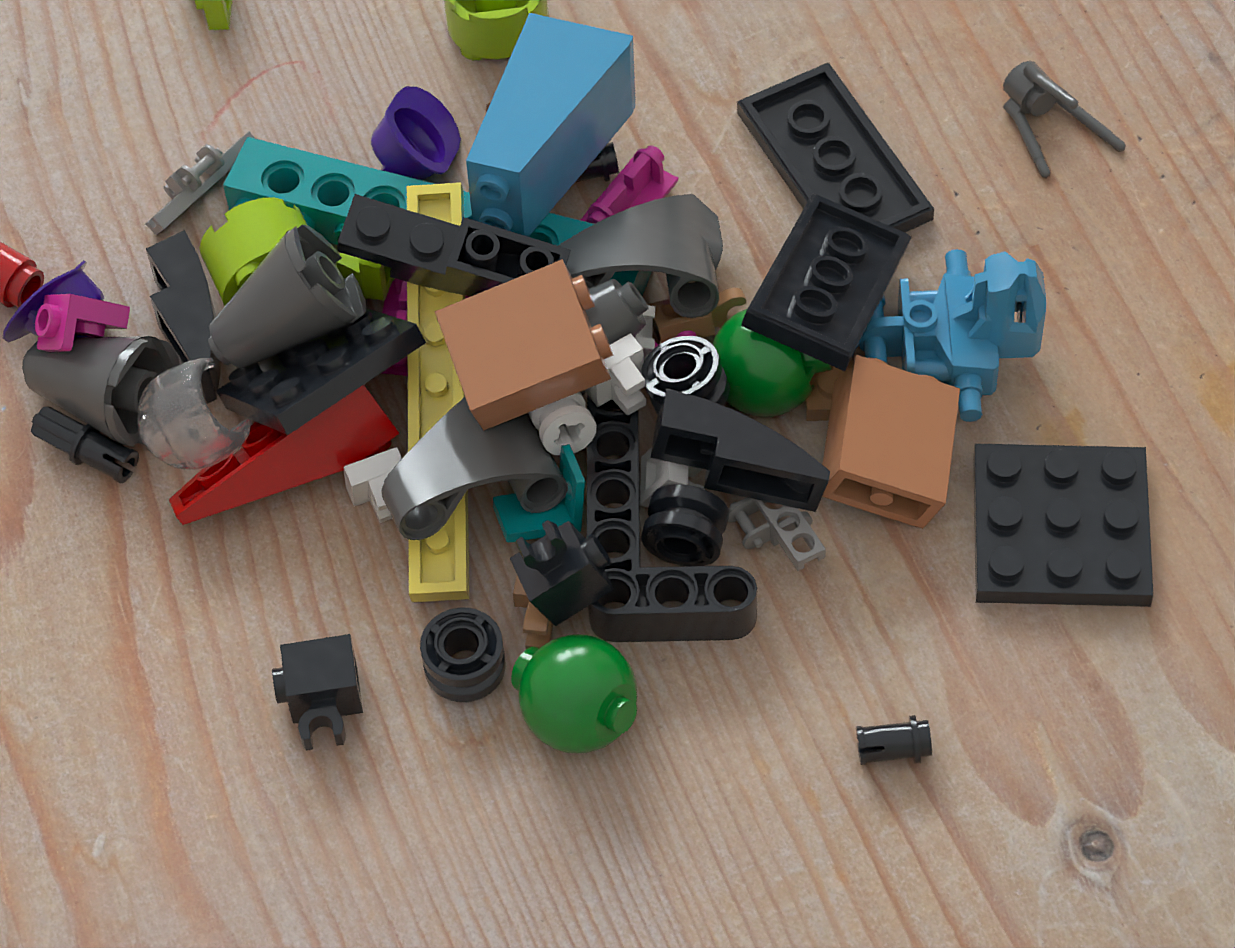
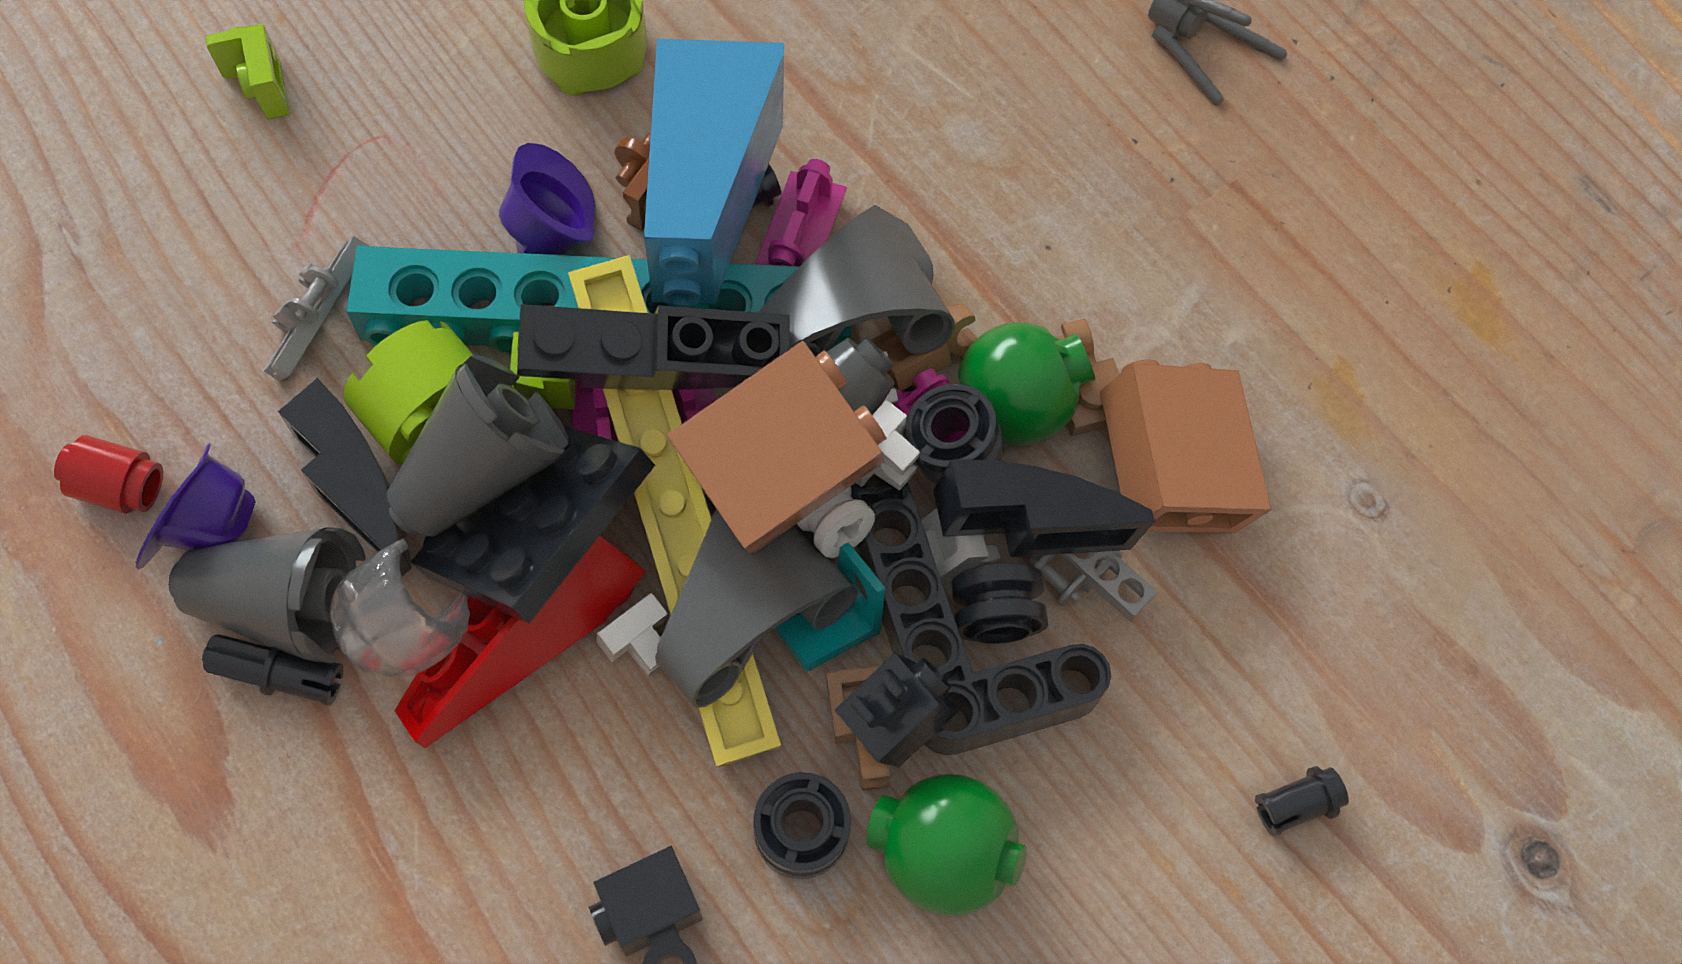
camera: 25 degrees left, 10 degrees up
(73, 314) = (208, 528): dark pink bracket -> none
(827, 282) = (1064, 283): black tile -> none
(832, 149) = (1002, 132): black tile -> none
(964, 325) = (1207, 295): dark azure piece -> none
(1062, 525) = (1378, 495): black plate -> none

